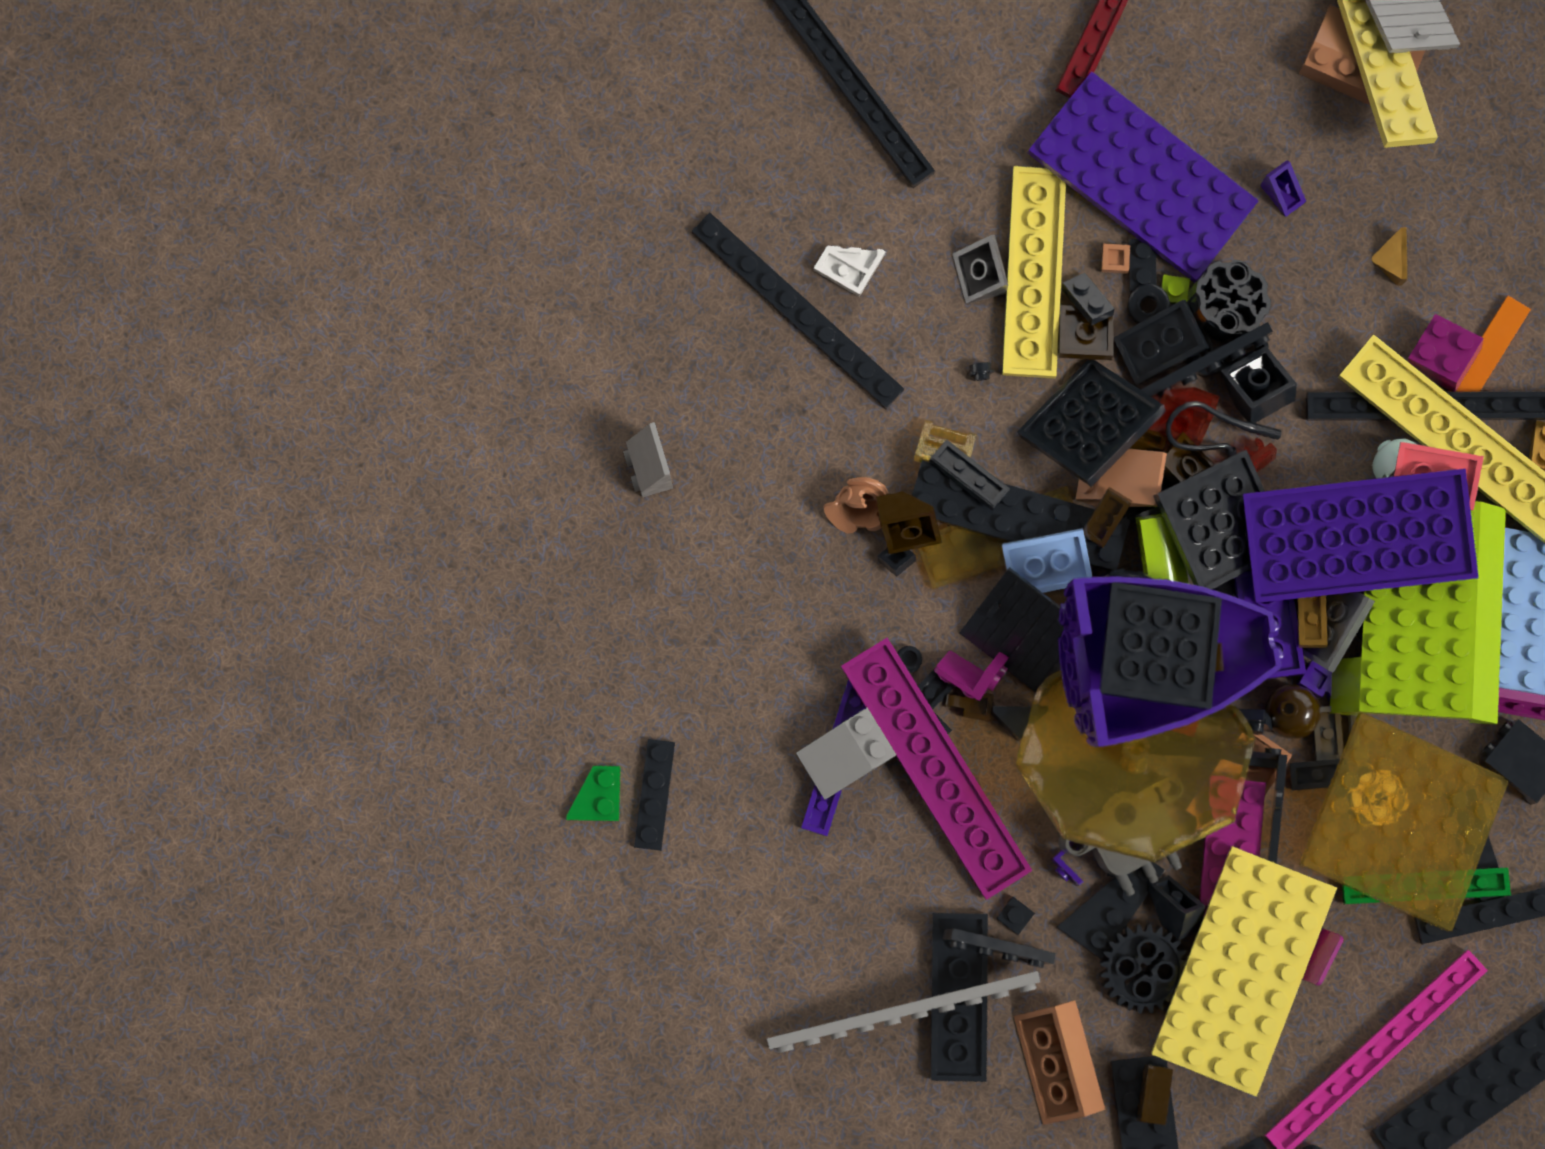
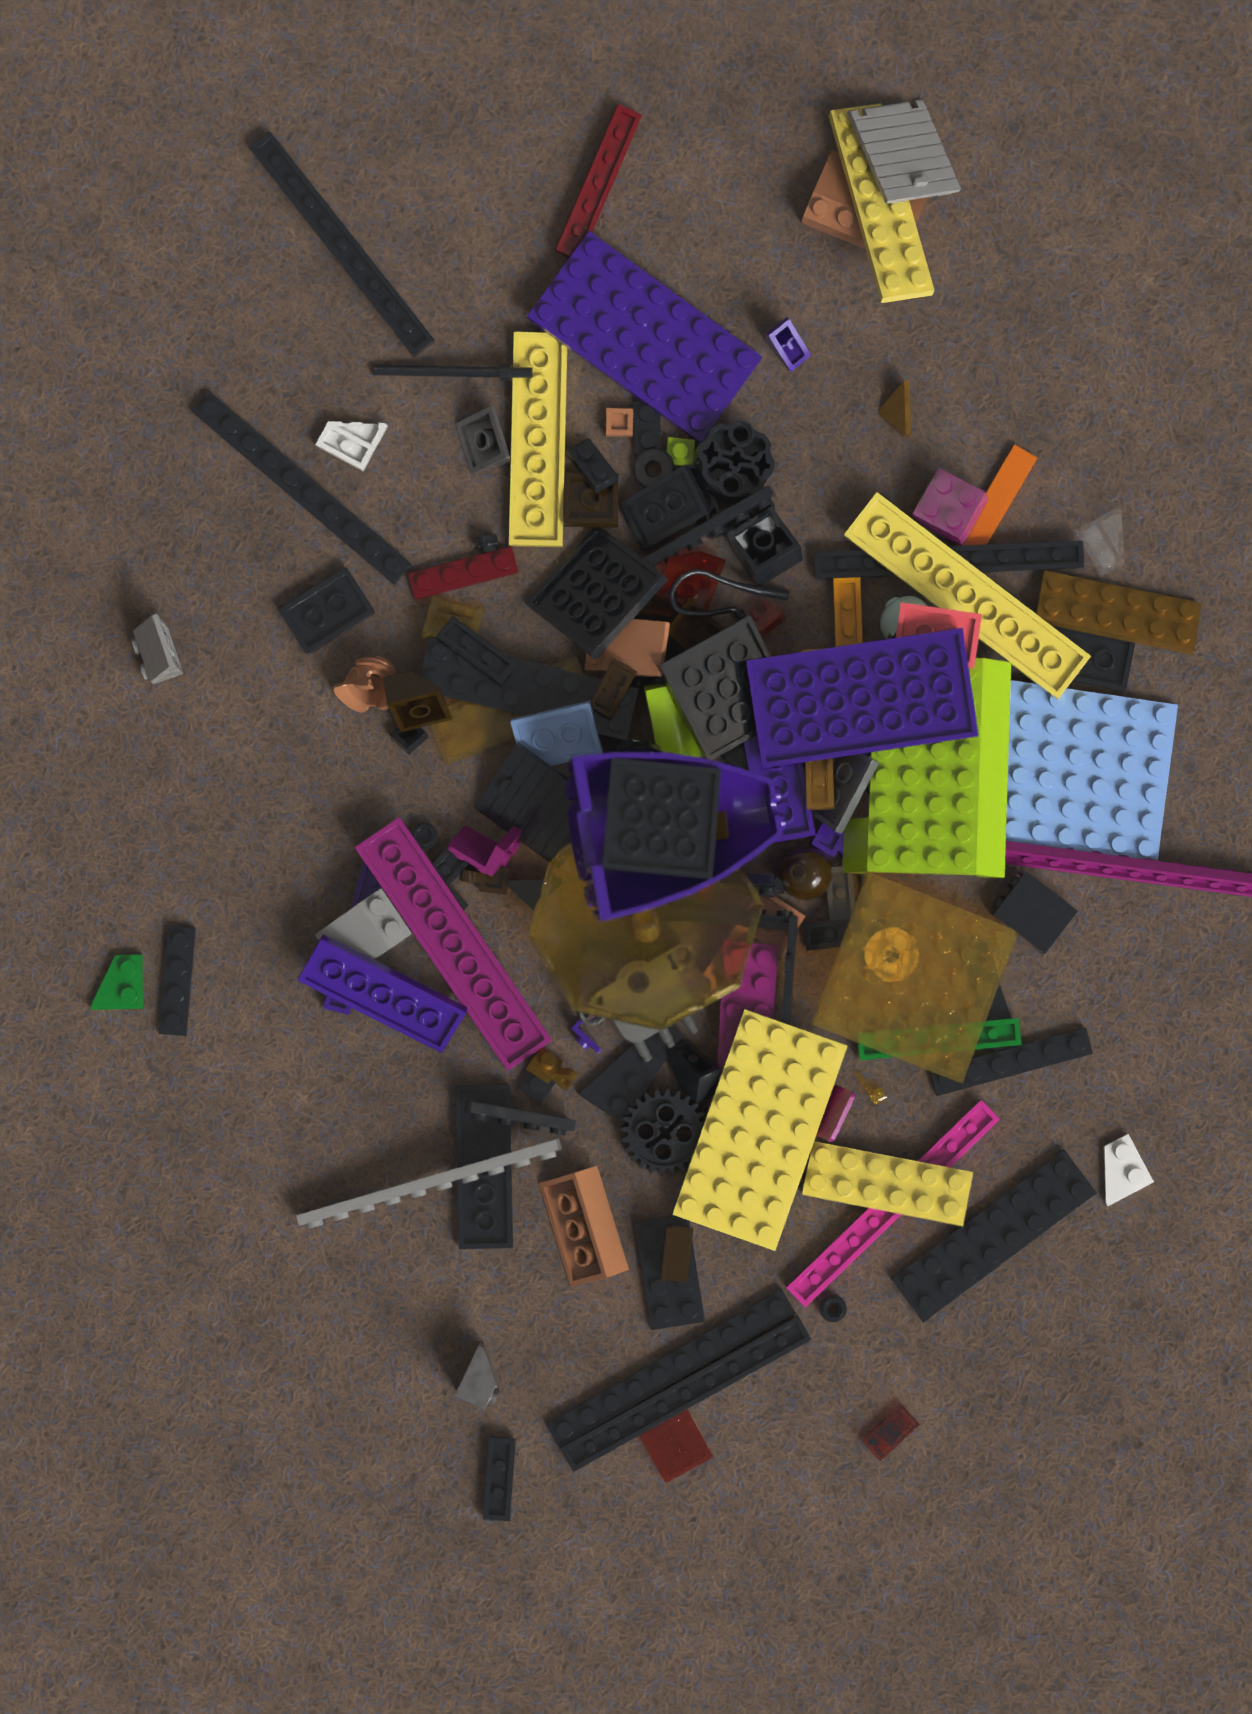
camera: 10 degrees left, 5 degrees up
(819, 431) = (327, 611): none -> black plate
(863, 815) = (382, 993): none -> dark purple plate
(956, 400) = (463, 573): none -> dark red plate
(1003, 204) = (504, 372): none -> black bar
(1028, 899) = (548, 1068): none -> pearl gold plate
(1339, 450) = (847, 611): none -> light orange plate
(1359, 941) = (877, 1095): none -> clear yellow hand
(1373, 1032) = (888, 1183): none -> light yellow plate

